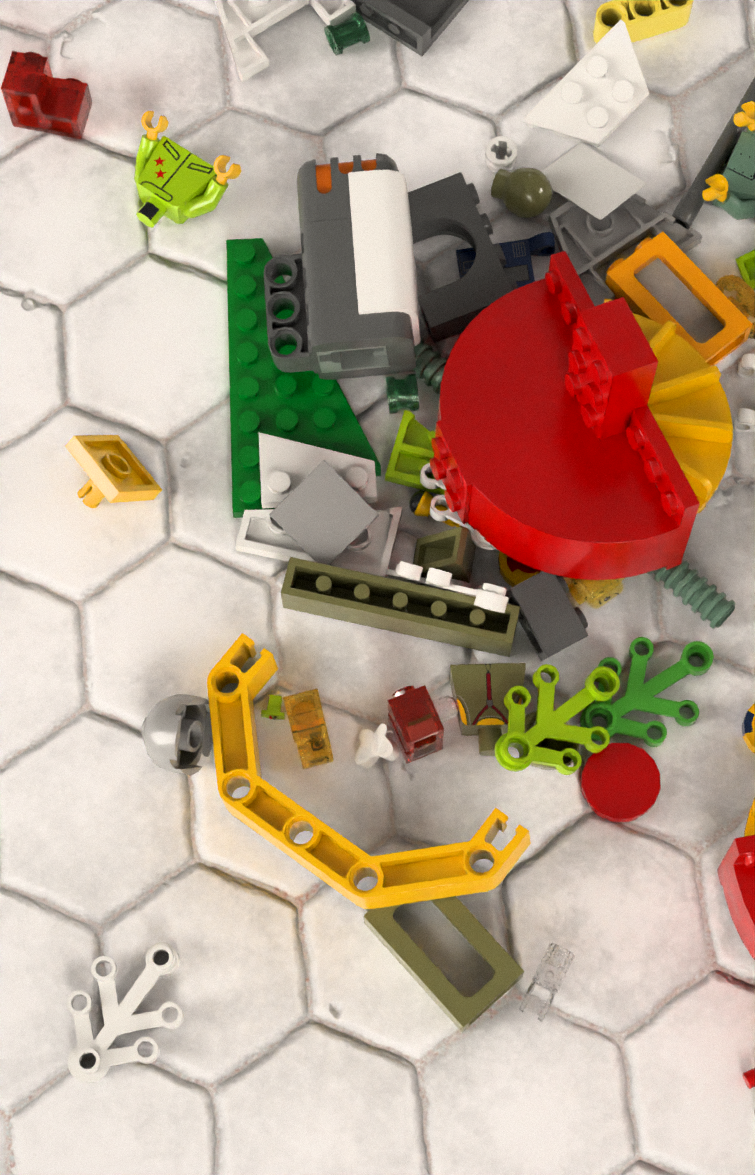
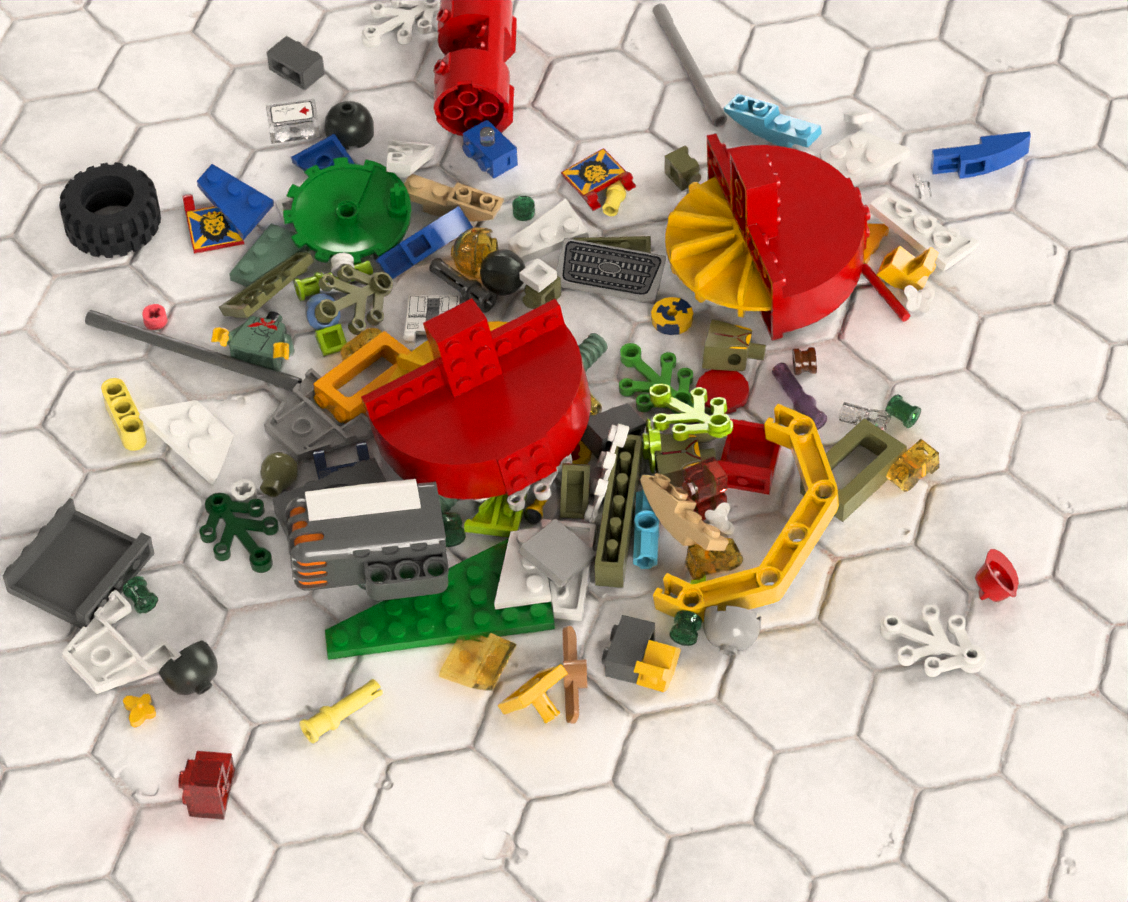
camera: 95 degrees left, 20 degrees down
(128, 239) = (330, 717): none -> light yellow pin
(133, 631) = (657, 666): none -> yellow brick
(145, 526) = (576, 674): none -> medium nougat piece
(171, 600) = (627, 647): none -> dark grey brick
(176, 180) = (278, 688): lime torso -> none
(182, 36) = (140, 709): none -> yellow piece
(190, 417) = (477, 661): none -> clear yellow slope
(192, 676) = (685, 628): none -> clear green wheel
(213, 84) = (191, 670): none -> pearl dark grey cylinder
(214, 1126) = (997, 577): none -> piece
(345, 641) = (645, 533): none -> medium azure piece
(366, 681) = (677, 516): none -> tan slope
(439, 1037) = (913, 465): none -> clear yellow leg
(445, 141) = (221, 507): none -> dark green plant
(474, 788) = (749, 458): none -> red panel
(505, 657) = (650, 444): none -> lime plate
(549, 1040) = (903, 411): none -> clear green bush
(576, 894) = (802, 402): none -> clear purple pin
(592, 180) = (268, 432): white sticker -> none
(660, 906) = (804, 361): none -> reddish brown wheel
(690, 796) = (730, 347): none -> olive torso

